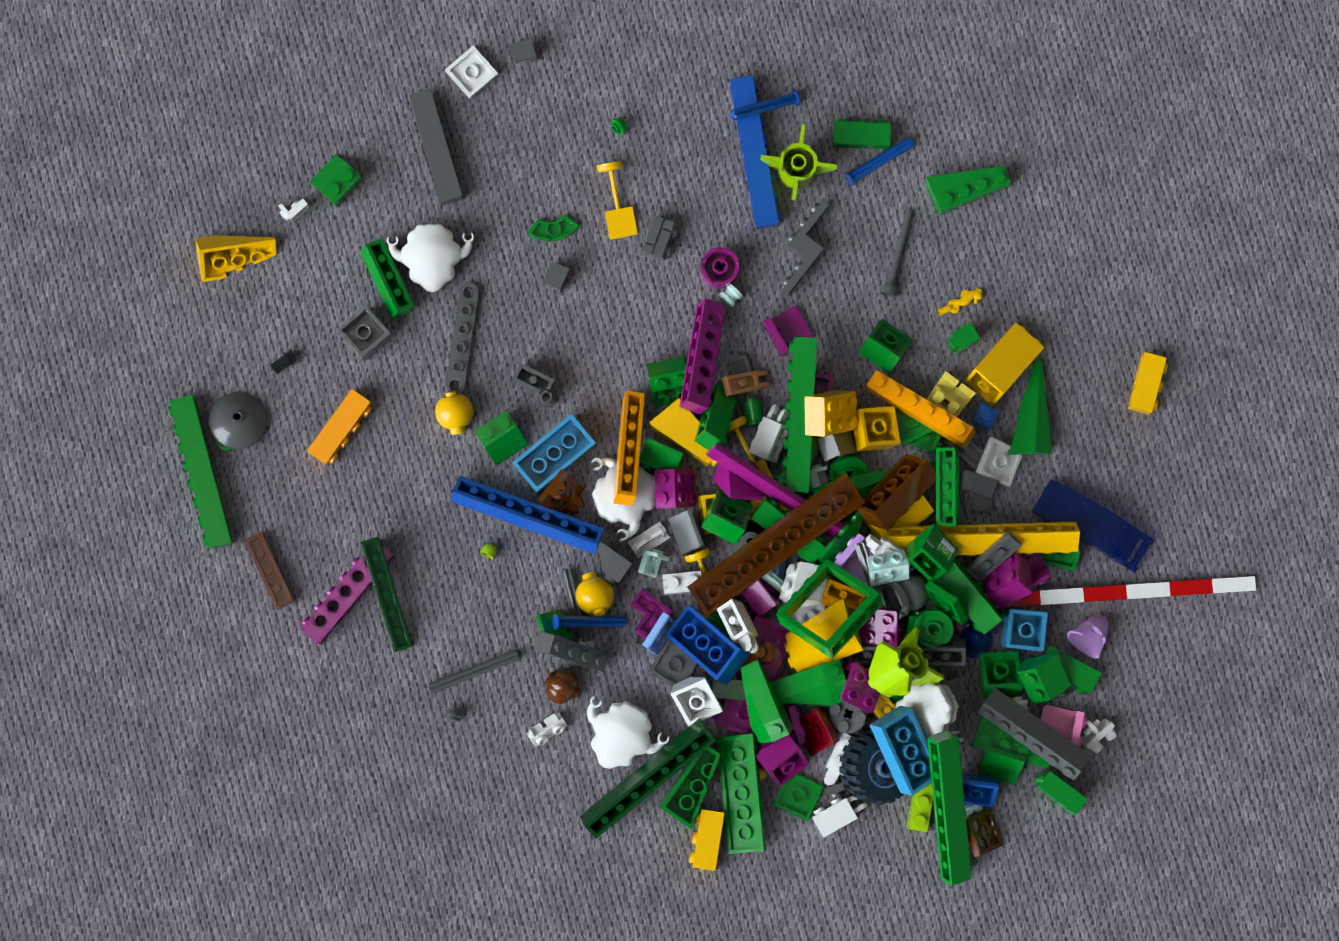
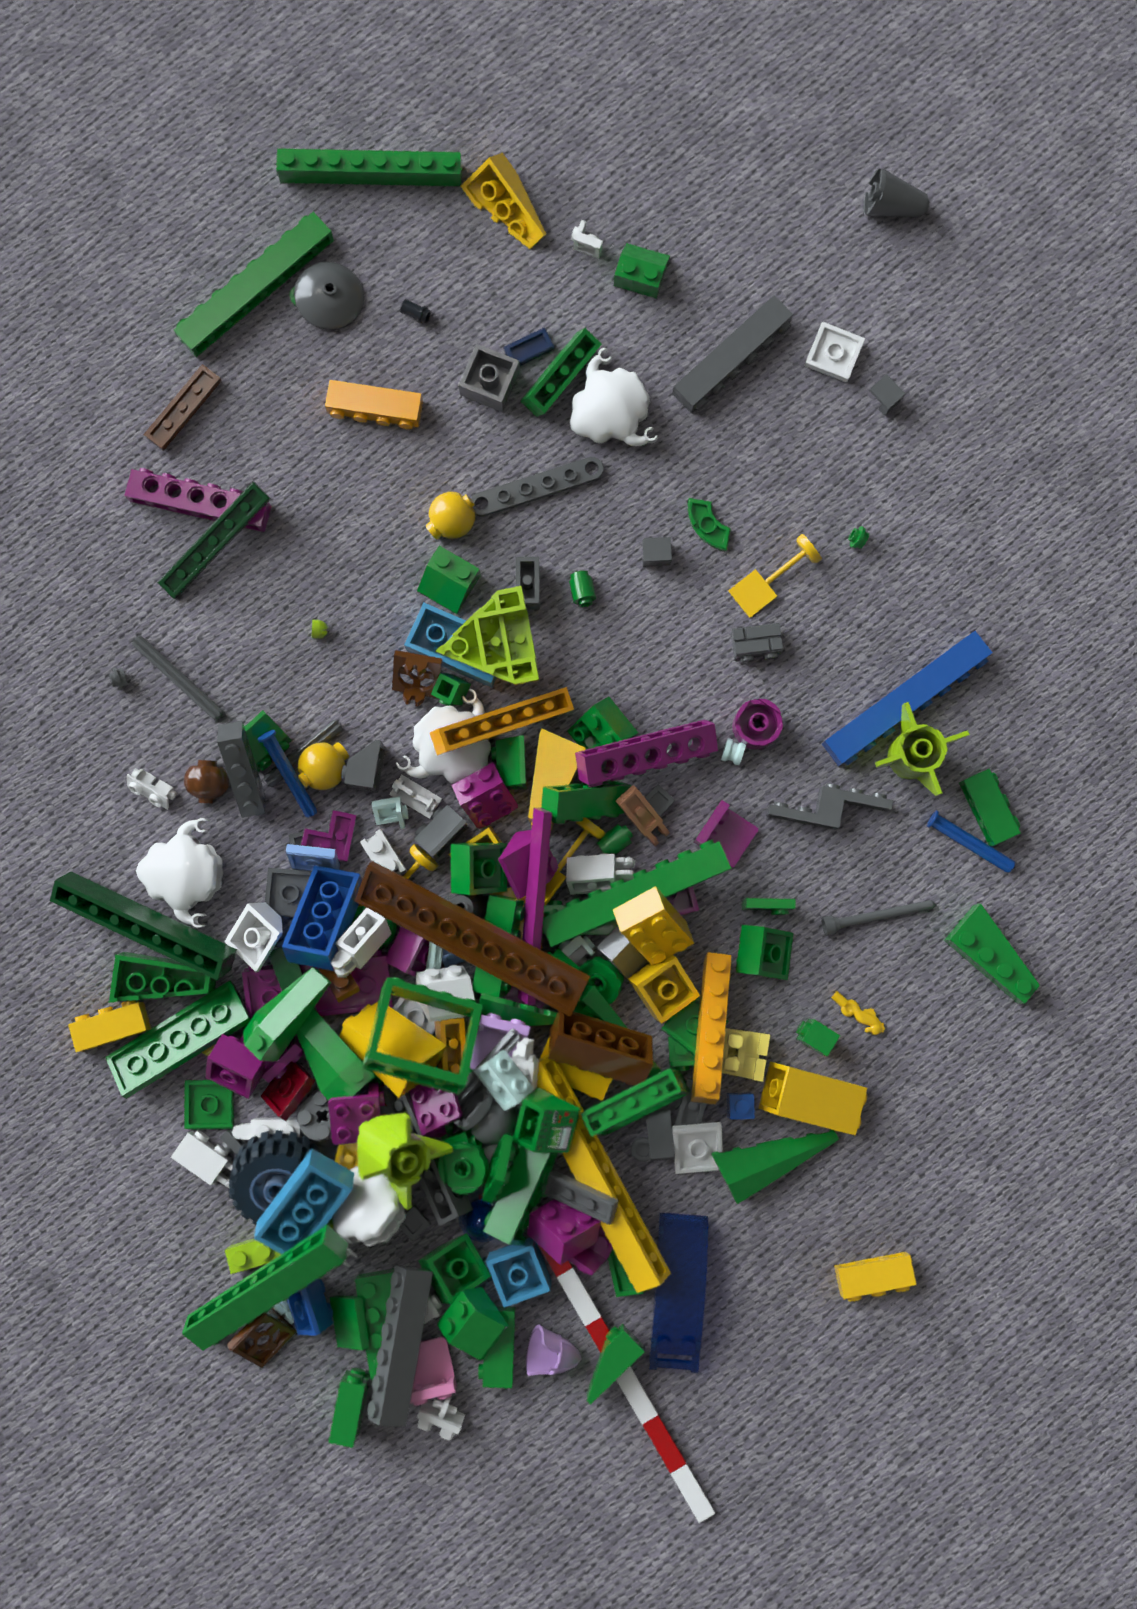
camera: 65 degrees right, 0 degrees up
(154, 342) = (369, 167): none -> green brick
(353, 292) = (530, 346): none -> dark blue tile
(527, 514) = (375, 648): blue brick -> none
(556, 344) = (582, 588): none -> green brick
(570, 421) = (497, 639): none -> lime wedge
(584, 475) = (450, 689): none -> green brick
(766, 105) = (966, 684): blue axle -> none
(857, 321) = (776, 906): none -> green plate
(1114, 589) = (617, 1355): none -> green slope

